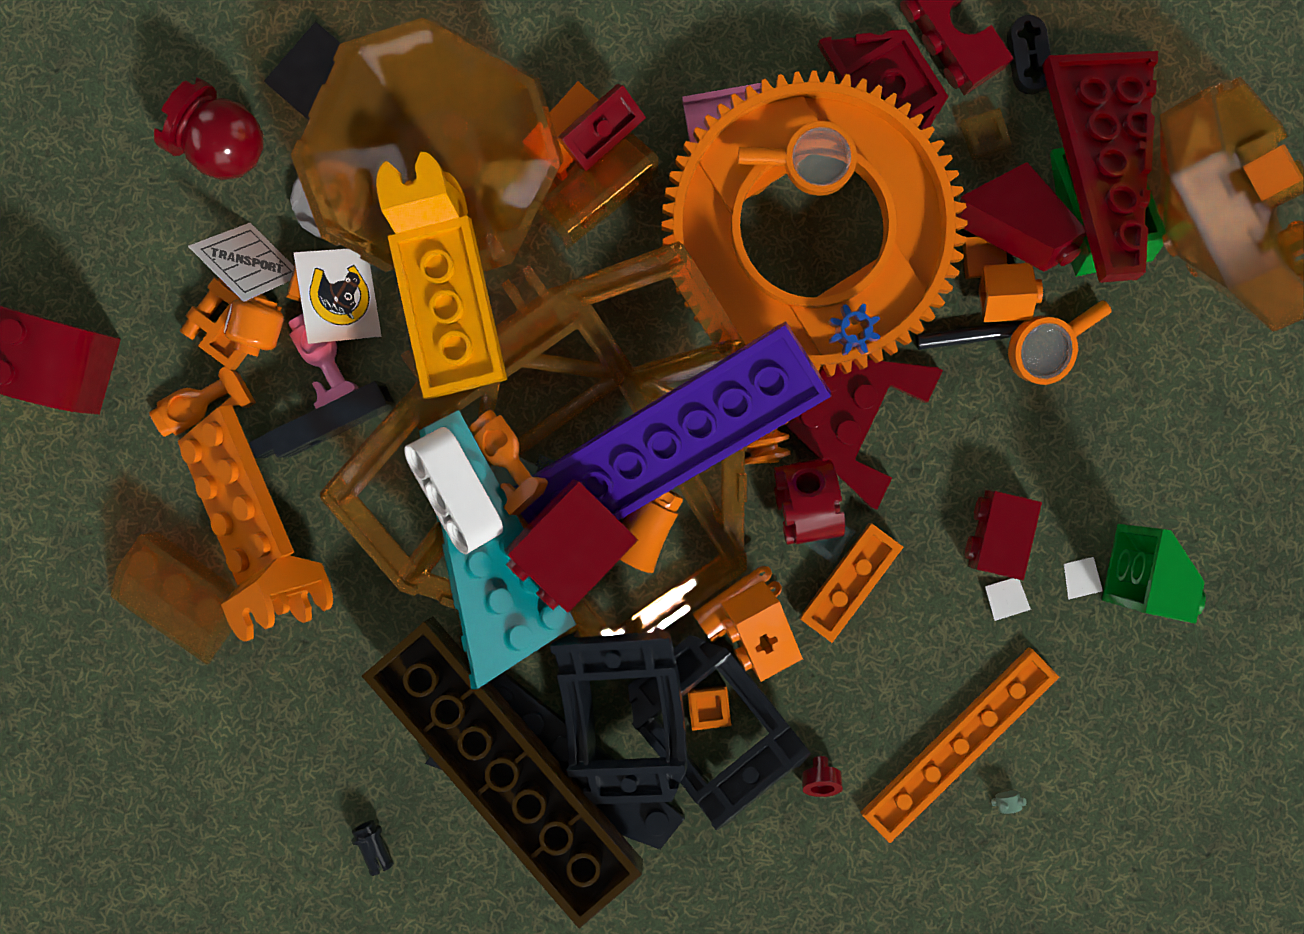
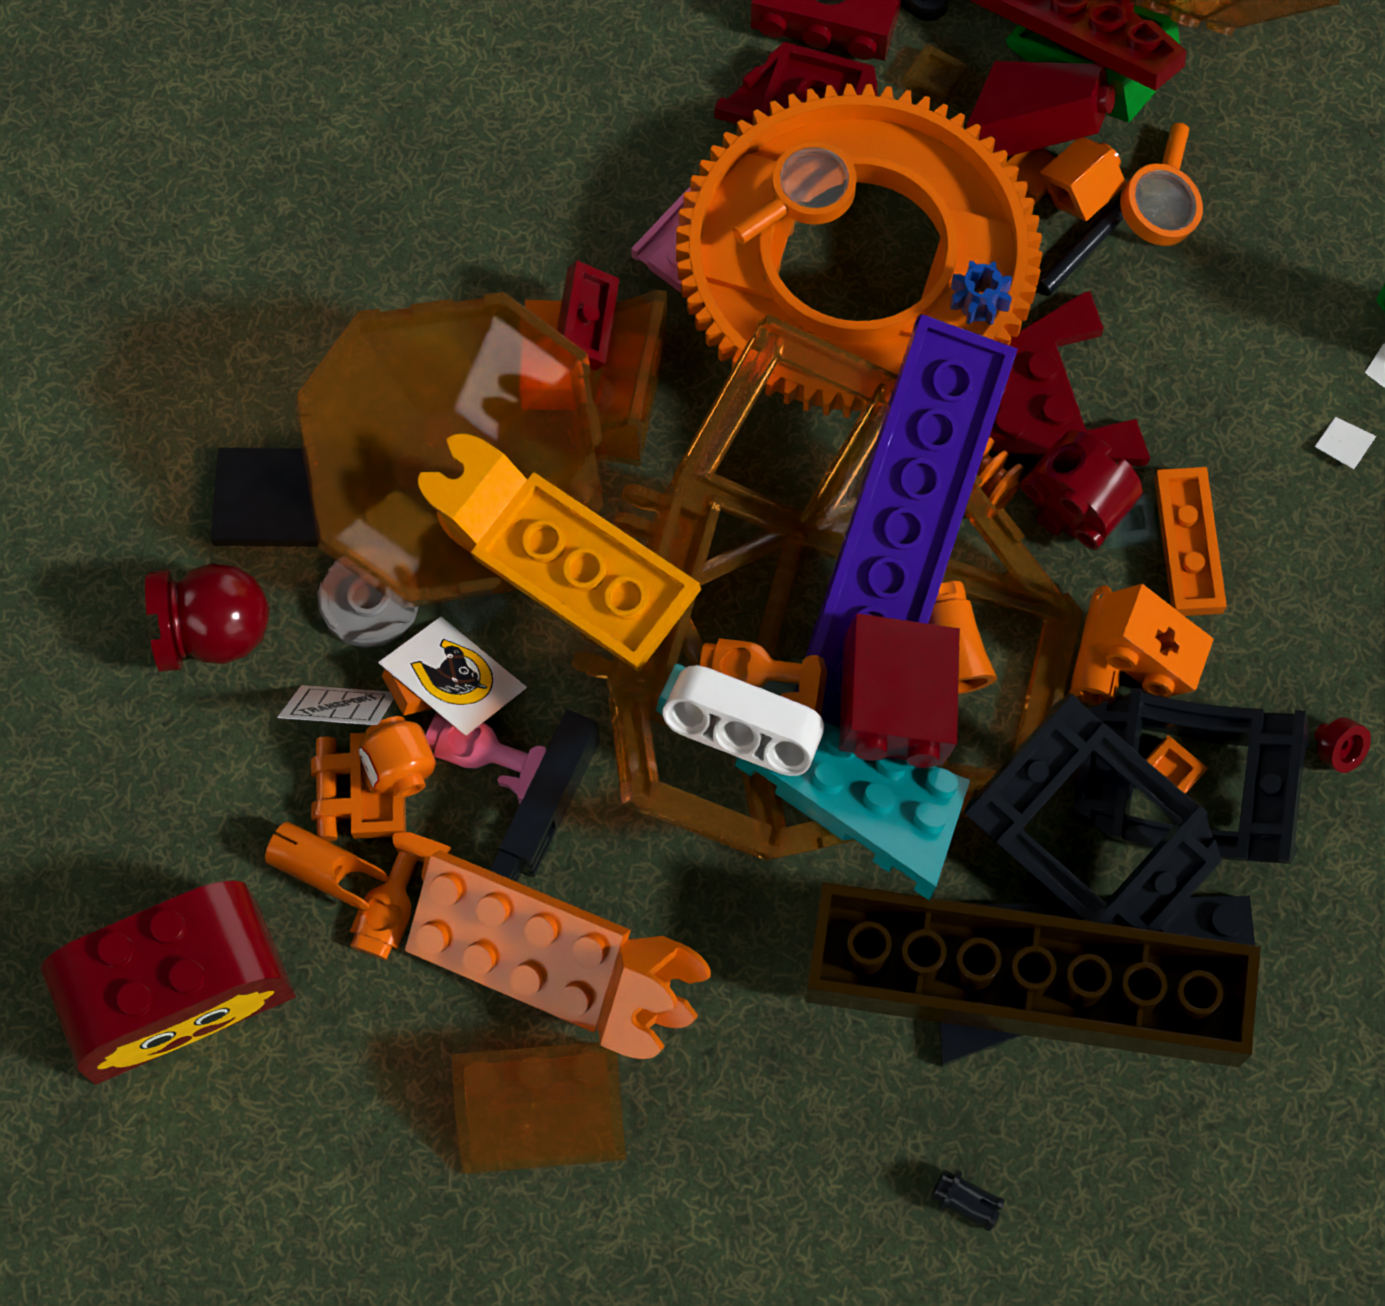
camera: 45 degrees left, 20 degrees down
(165, 345) = (318, 862): none -> orange piece
(1003, 534) = (1284, 384): dark red brick -> none

